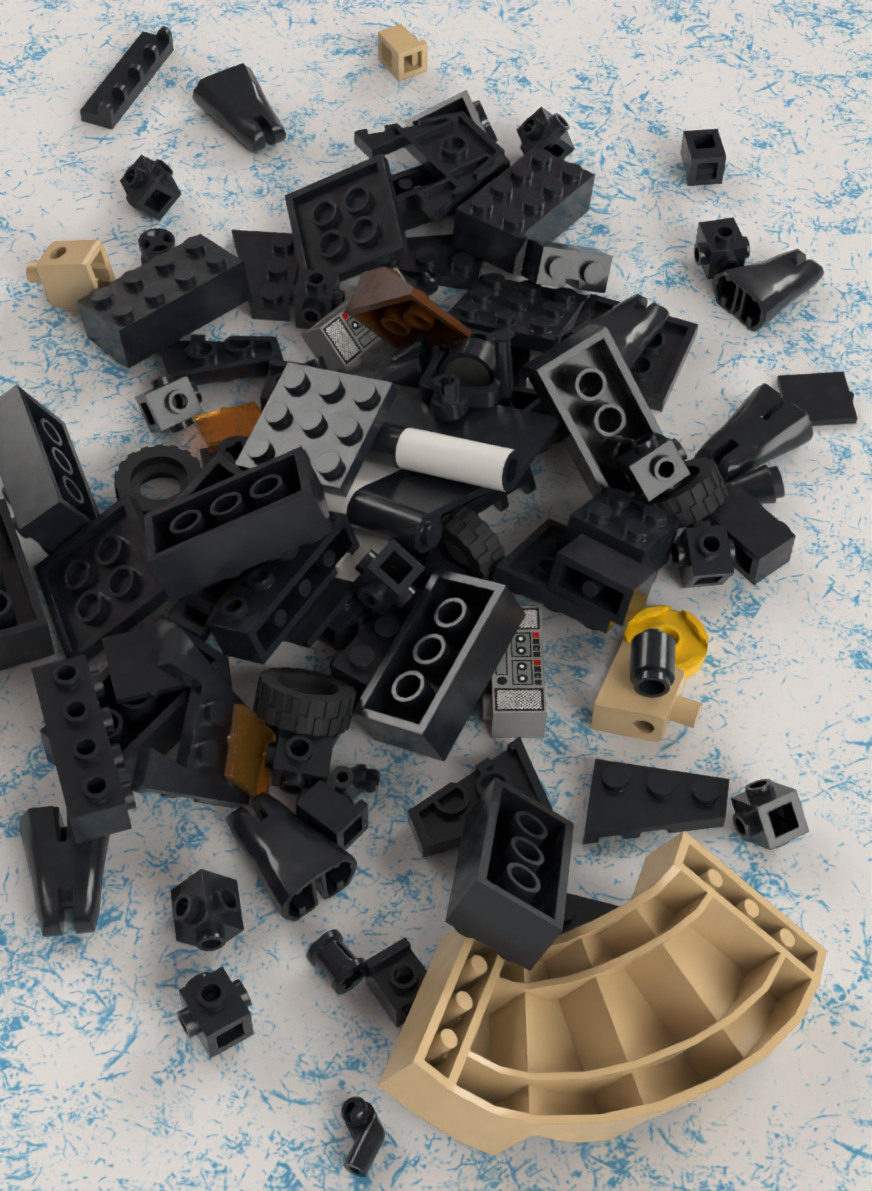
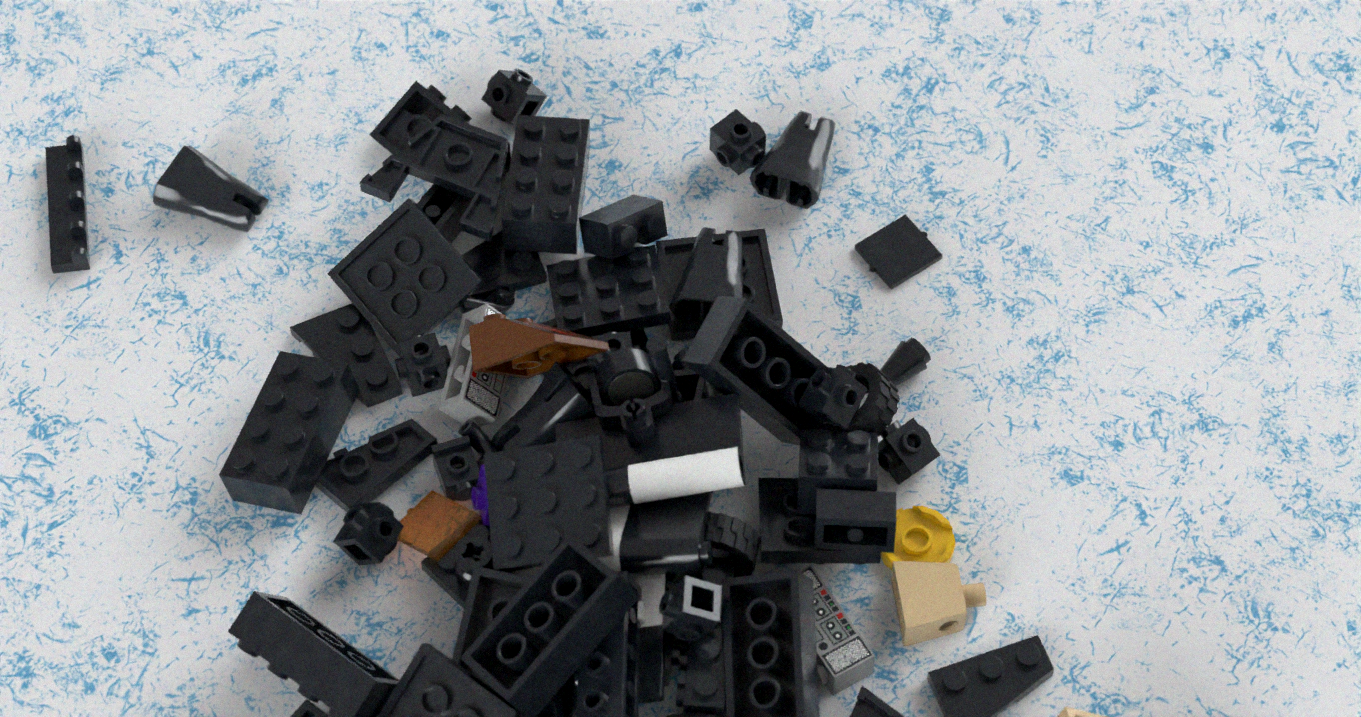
camera: 30 degrees left, 5 degrees up
(71, 271) = (188, 447): tan torso -> none
(150, 186) = (187, 320): black brick -> none
(151, 464) = (413, 587): black tyre -> none
(155, 242) = (231, 379): black wheel -> none
(401, 52) = (314, 58): tan brick -> none
(652, 663) = (934, 571): black brick -> none
(703, 157) = (661, 49): black brick -> none
(757, 434) = (874, 314): black piece -> none
(758, 537) = (934, 408): black brick -> none
(769, 814) = (1089, 650): black brick -> none

